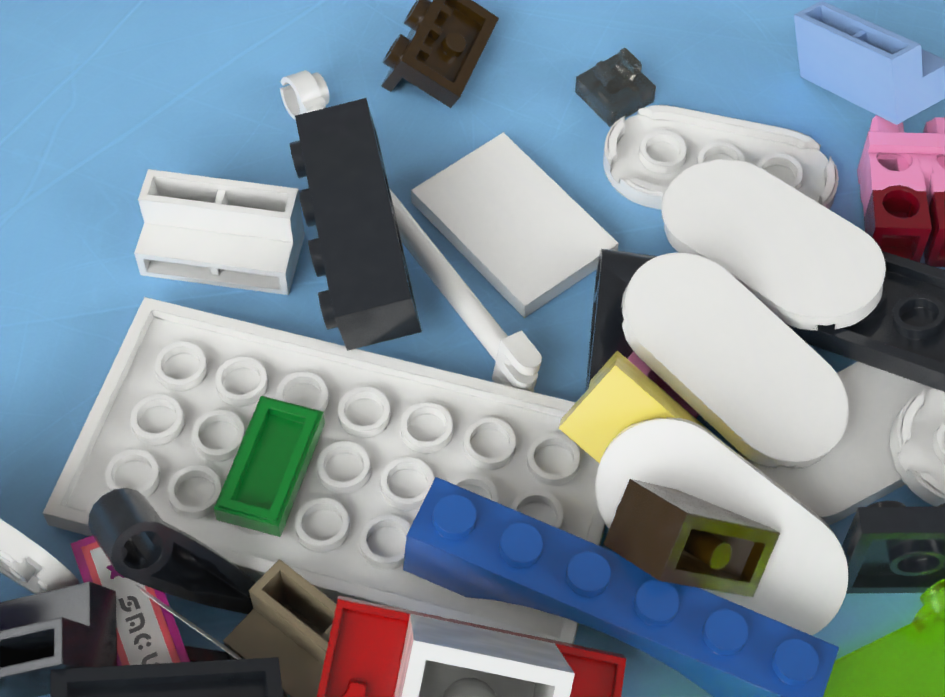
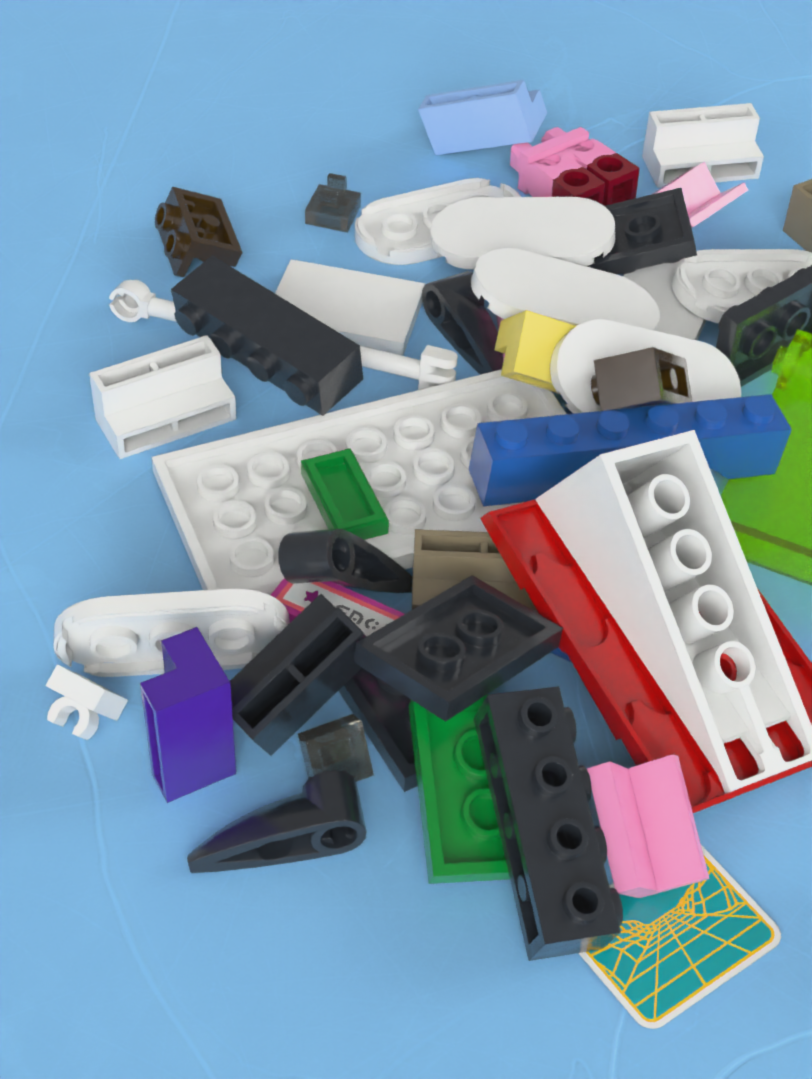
camera: 40 degrees left, 10 degrees down
(189, 623) = (392, 590): white sticker -> none

